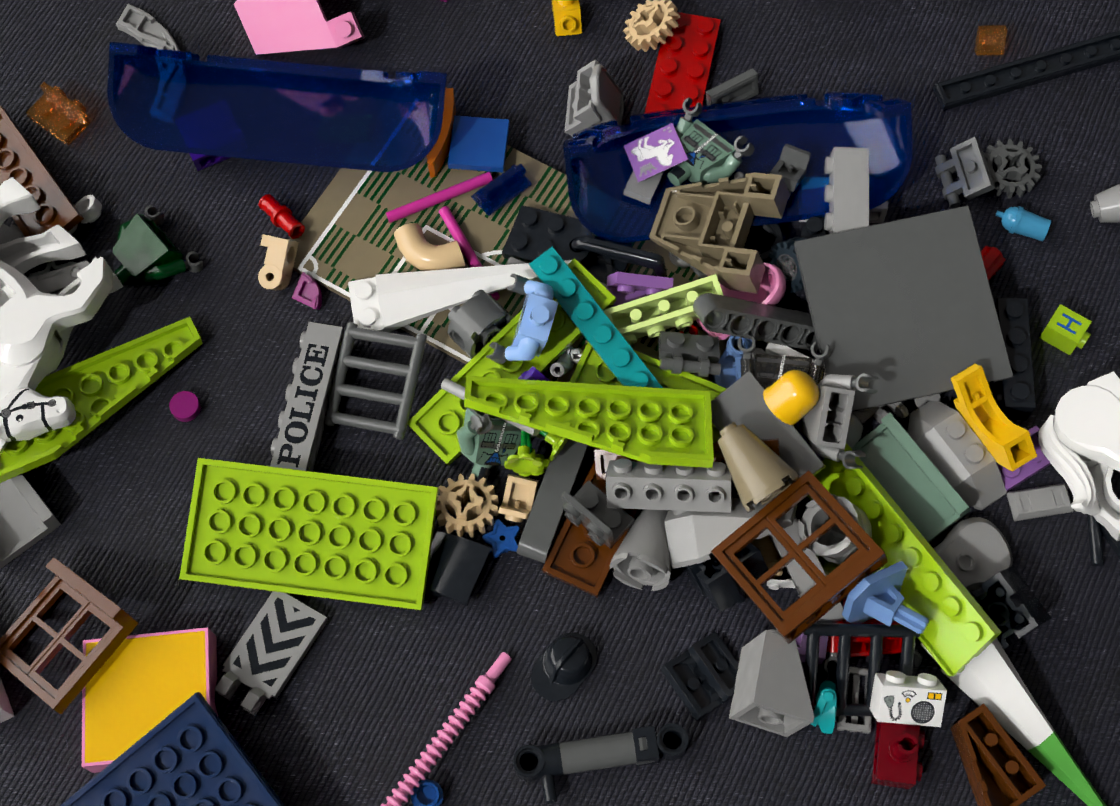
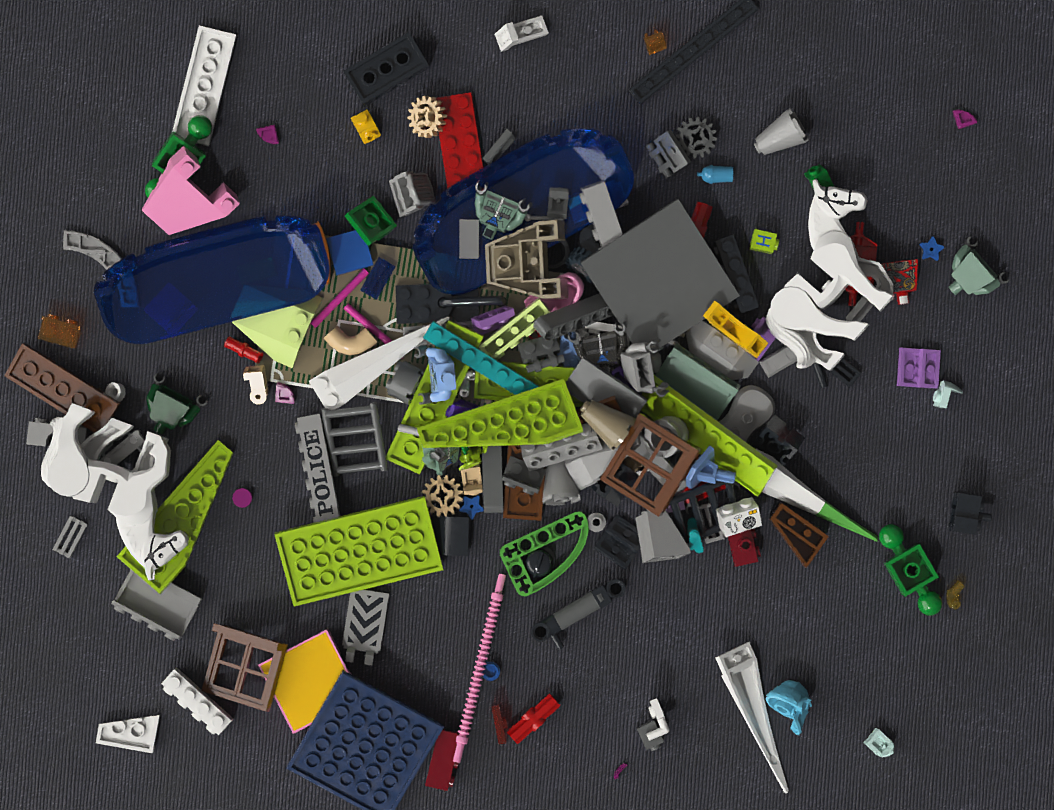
camera: 25 degrees left, 20 degrees up
(342, 201) = (281, 330): none -> yellowish green wedge
(523, 114) = (370, 220): none -> green plate
(574, 615) = (535, 544): none -> bright green beam
(655, 152) = (469, 224): medium lavender sticker -> none
(679, 640) = (596, 516): none -> light grey plate
(792, 396) = (613, 368): yellow helmet -> none

